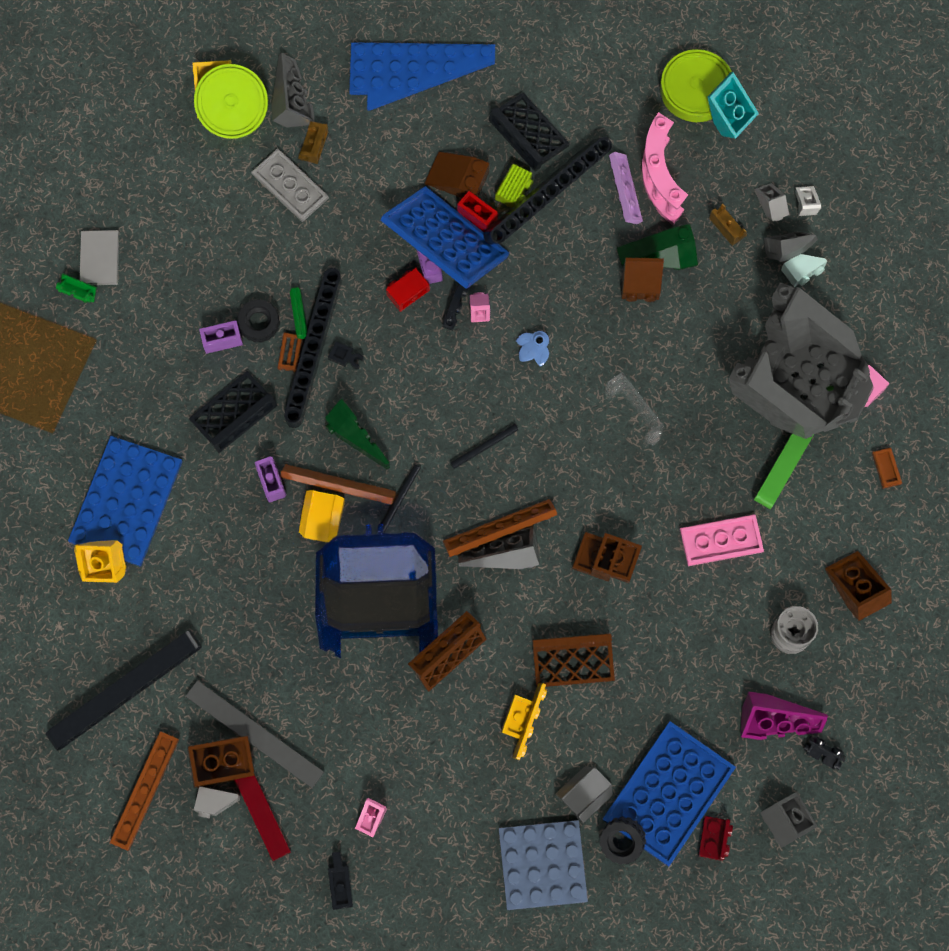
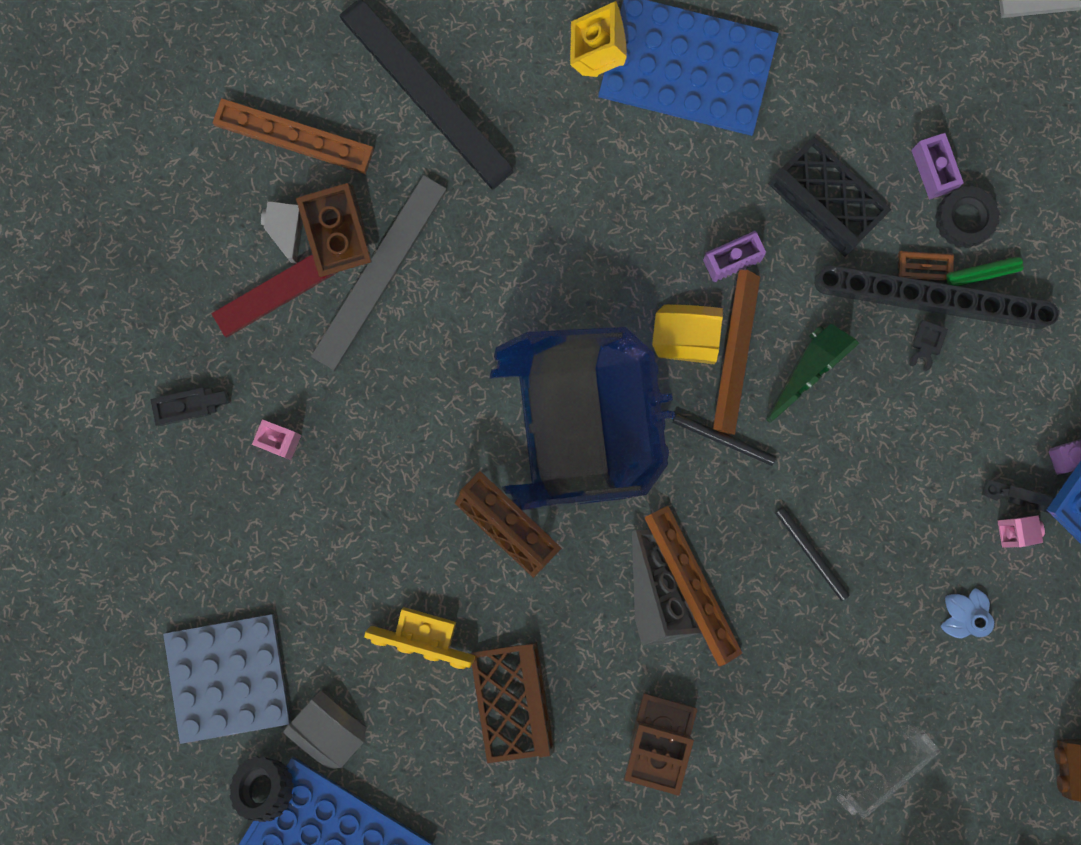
camera: 85 degrees right, 10 degrees up
(407, 289) = (1038, 424): red brick -> none

